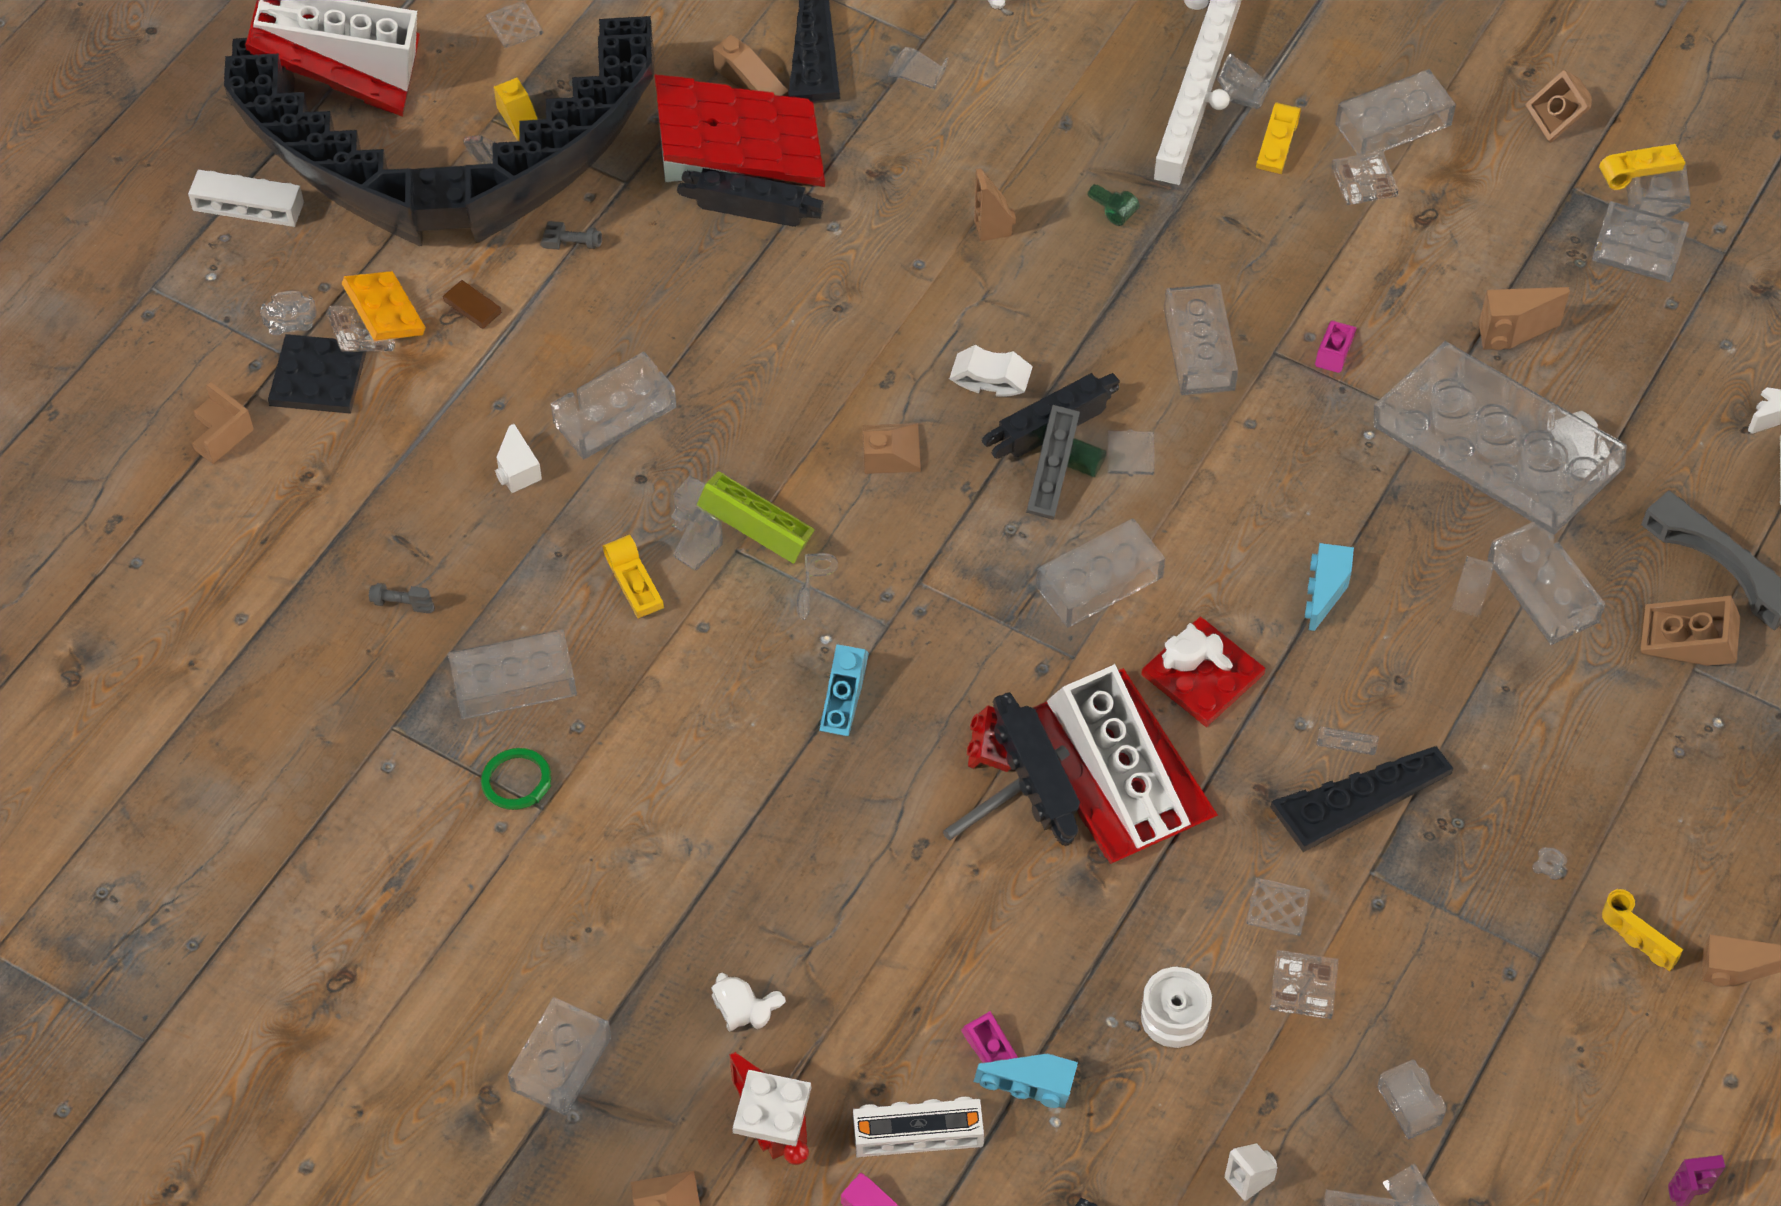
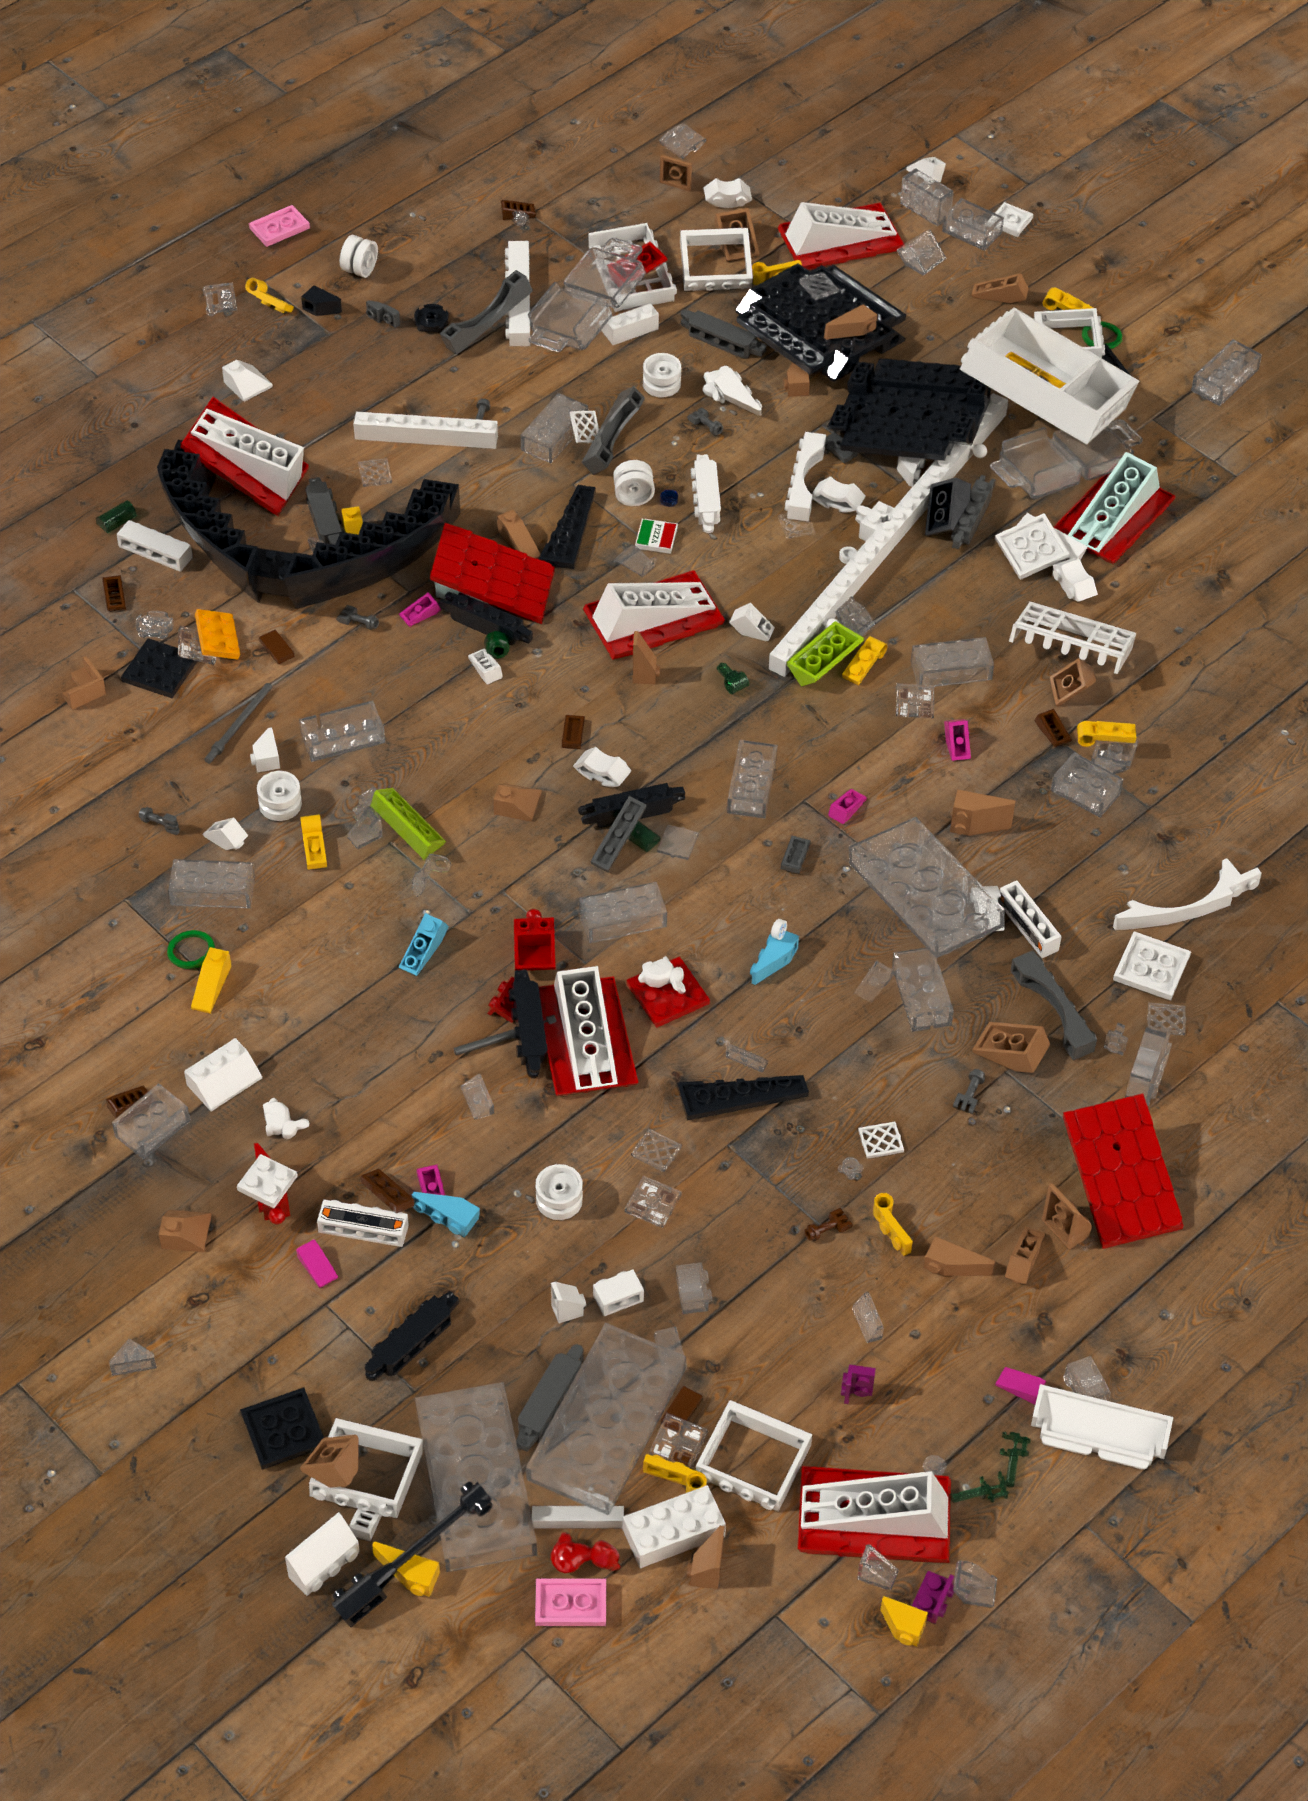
camera: 15 degrees right, 5 degrees down
(175, 167) = (116, 516): none -> clear green brick
(205, 263) = (111, 582): none -> reddish brown slope
(445, 468) = (218, 747): none -> dark grey bar
(467, 97) = (323, 511): none -> dark grey hinge
(505, 595) = (226, 834): none -> white slope
(506, 1054) = (120, 1099): none -> reddish brown slope
(560, 521) = (279, 795): none -> white wheel
(564, 819) = (211, 979): none -> yellow slope
(634, 957) = (222, 1074): none -> white slope
(652, 205) = (420, 610): none -> dark pink slope
(778, 230) = (496, 644): none -> dark green head
(779, 275) = (487, 667): none -> white slope
(928, 329) = (573, 731): none -> reddish brown tile
(932, 27) = (656, 536): none -> tile
(936, 1070) = (387, 1190): none -> reddish brown plate
(984, 126) = (656, 610): none -> white piece
(998, 648) = (534, 942): none -> red slope
(1005, 894) = (478, 1097): none -> clear slope
(1109, 120) = (751, 623): none -> white slope
(1225, 141) = (823, 653): none -> lime slope
(1297, 431) = (795, 854): none -> dark grey plate
(1312, 1133) = (618, 1292): none -> white brick
(1327, 545) = (779, 929): none -> white tile
(1445, 217) = (957, 739): none -> dark pink slope
(1540, 970) = (813, 1232): none -> reddish brown hinge
(1541, 25) = (1076, 624): none -> white window
(1560, 164) = (1056, 722): none -> reddish brown slope
(1562, 794) = (875, 1147): none -> white window
(1648, 448) = (1029, 919): none -> white brick
(1664, 689) = (976, 1077): none -> dark grey hinge
(1664, 1077) = (868, 1318): none -> clear slope

